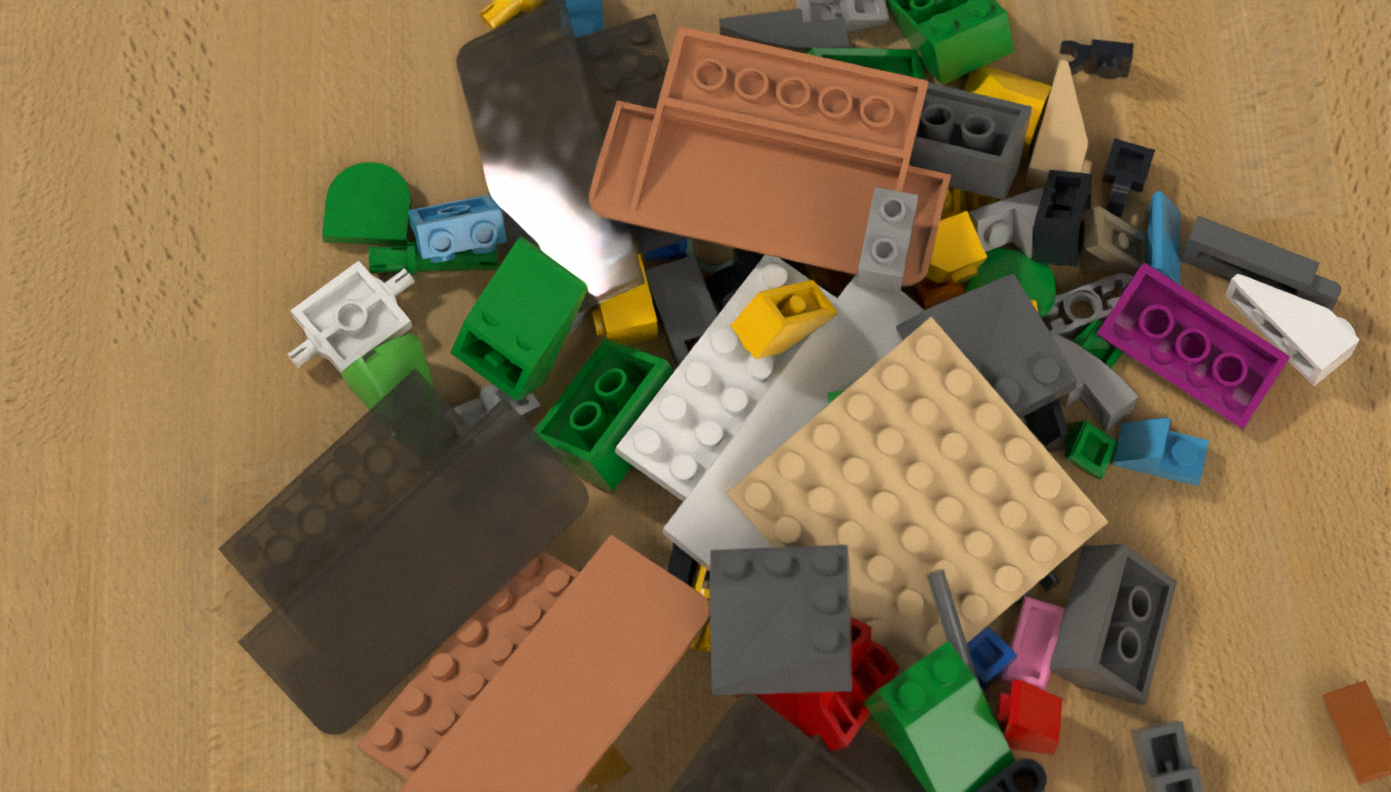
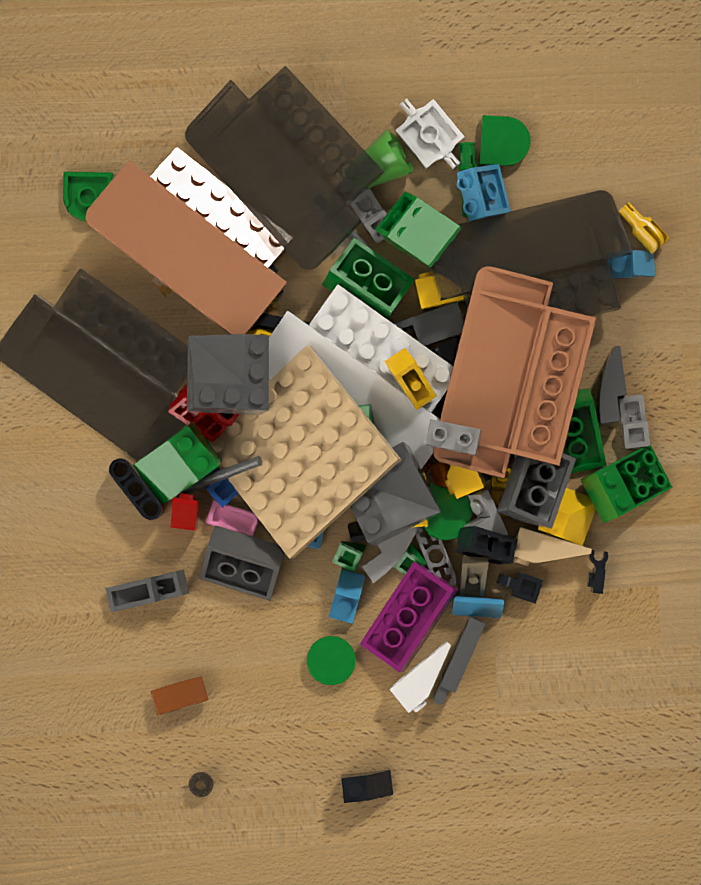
camera: 85 degrees right, 20 degrees up
(1275, 477) = (331, 660): none -> green tile

